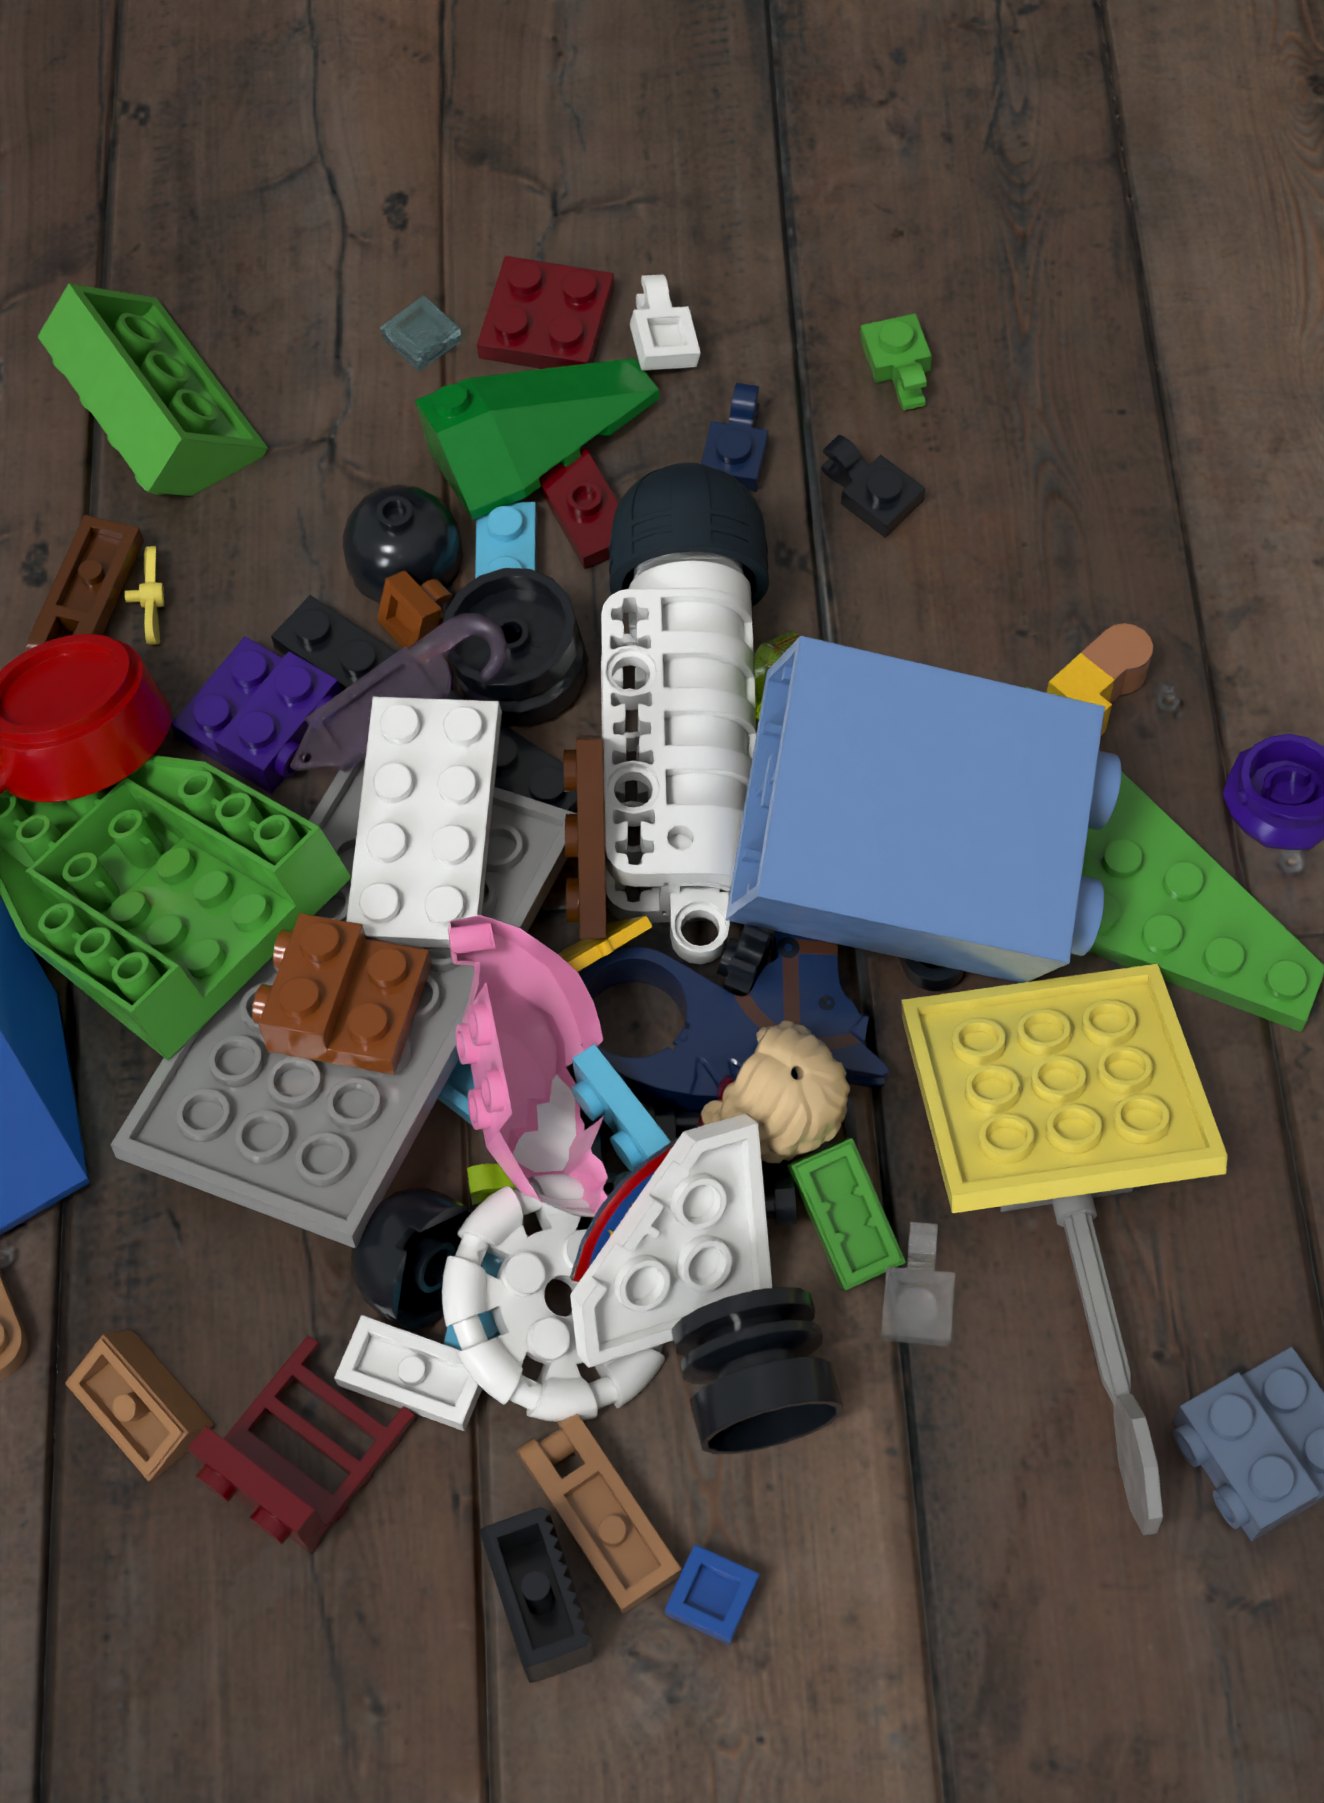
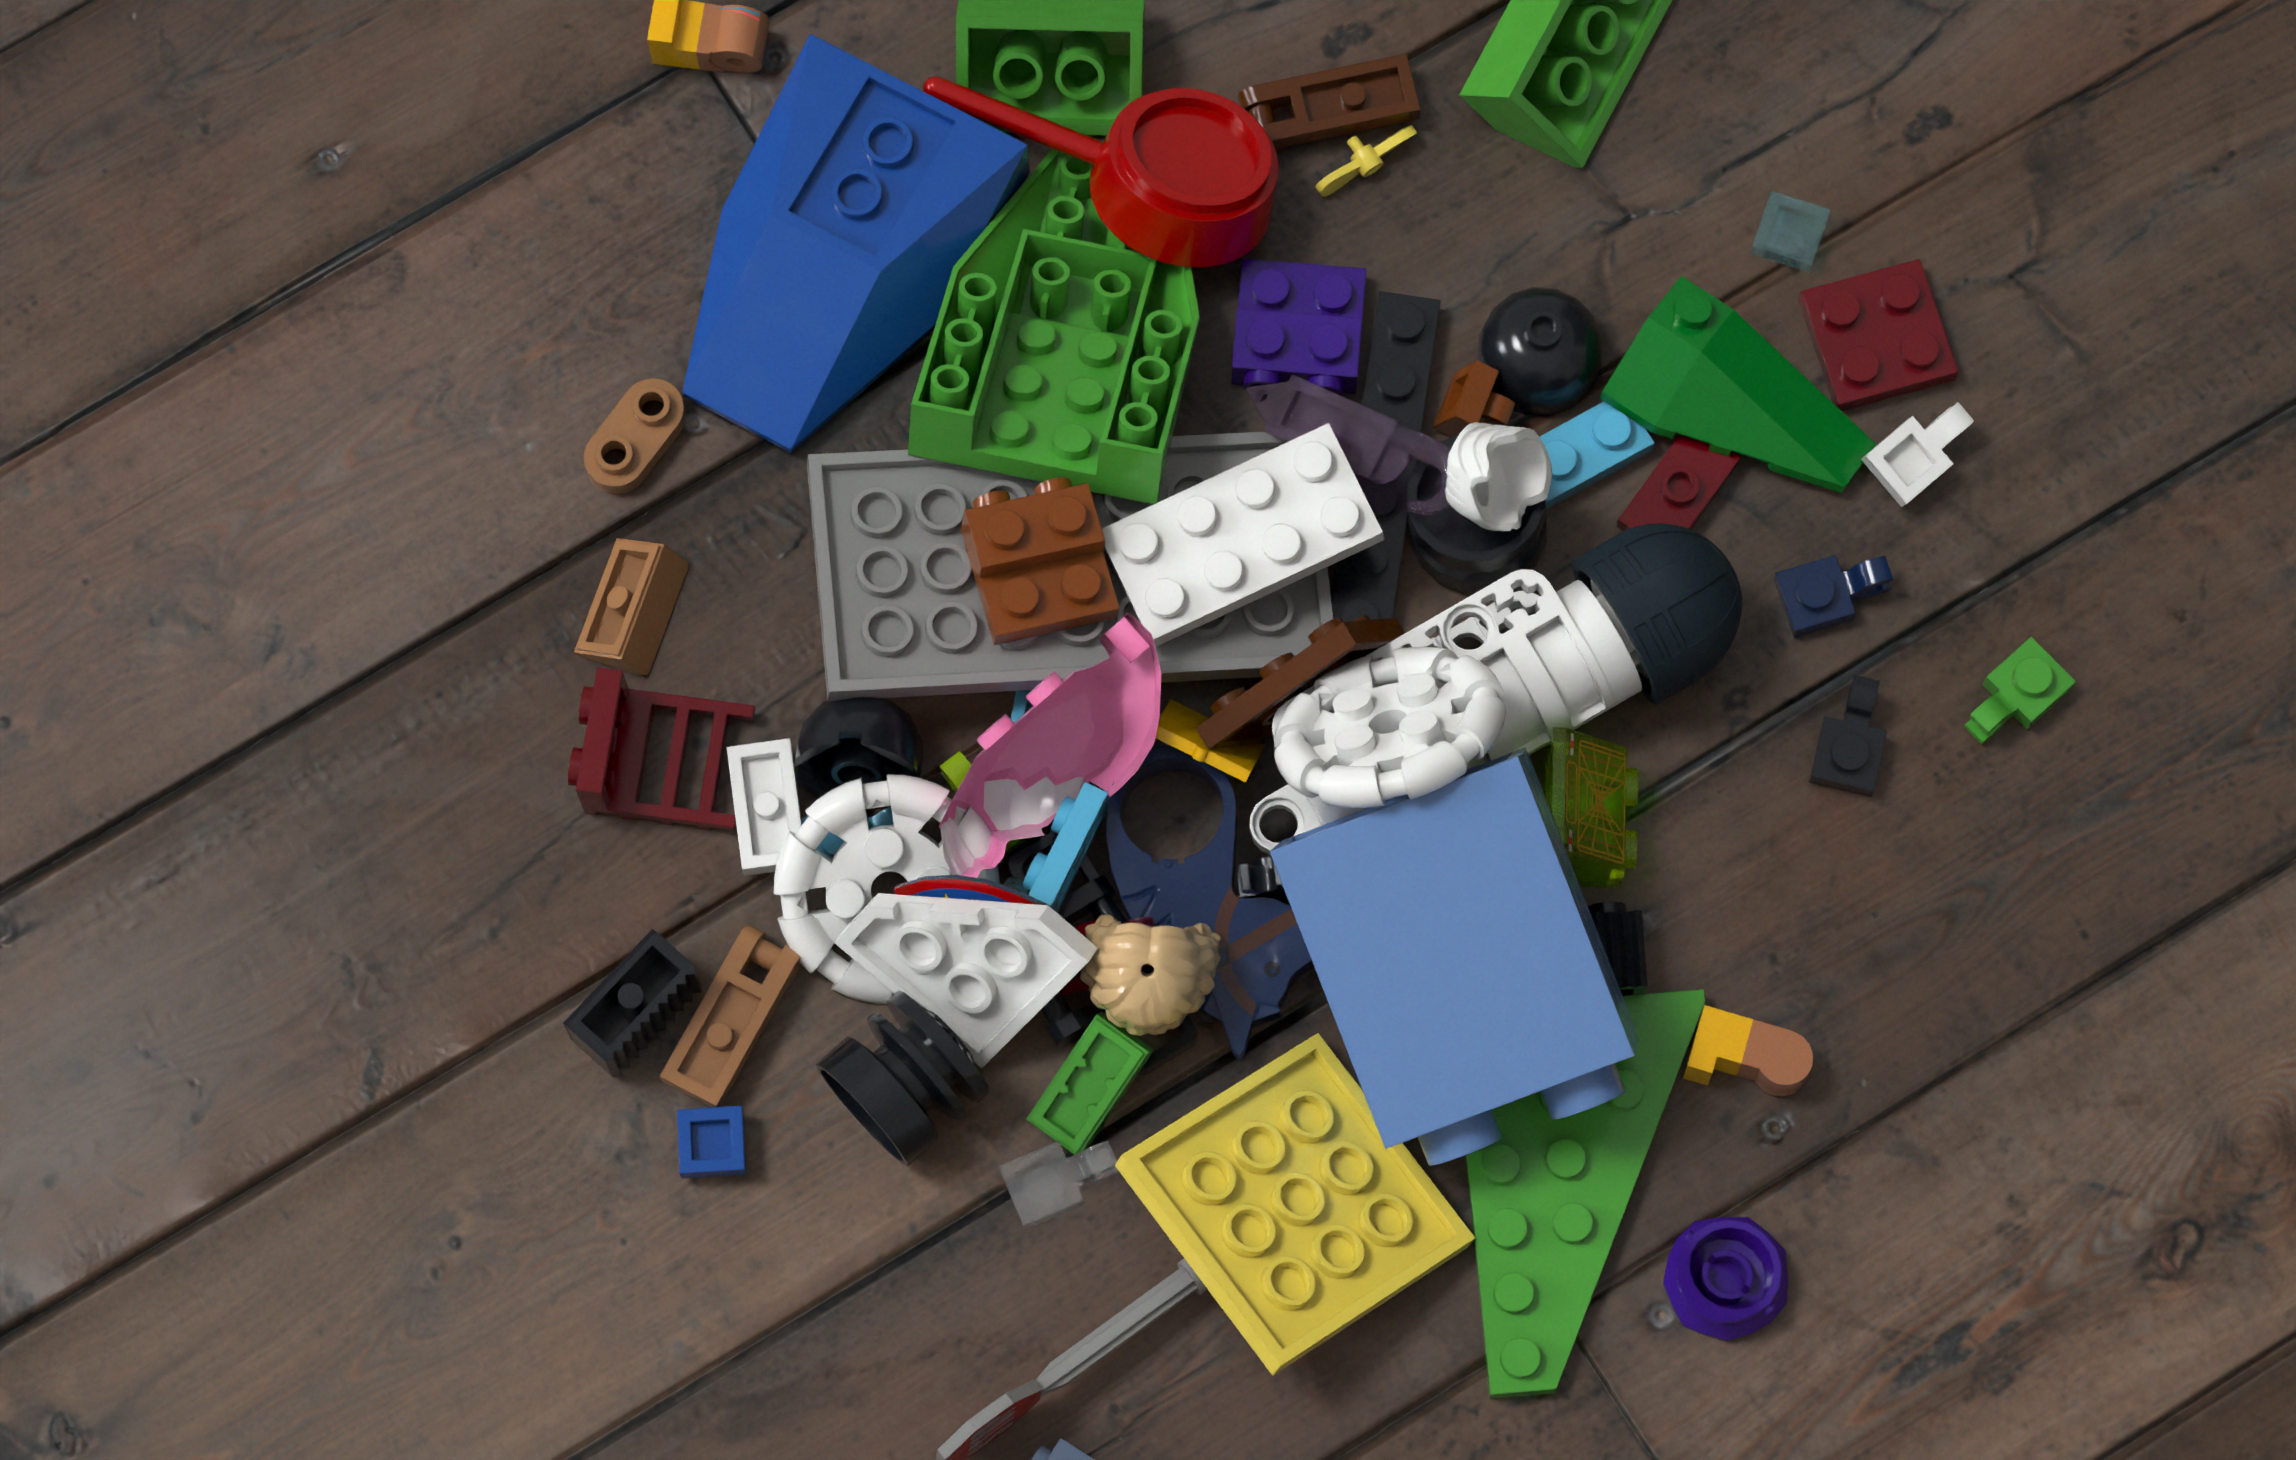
camera: 60 degrees right, 10 degrees up
(506, 586) = (1497, 474): none -> white hair
(731, 704) = (1386, 733): none -> white plate

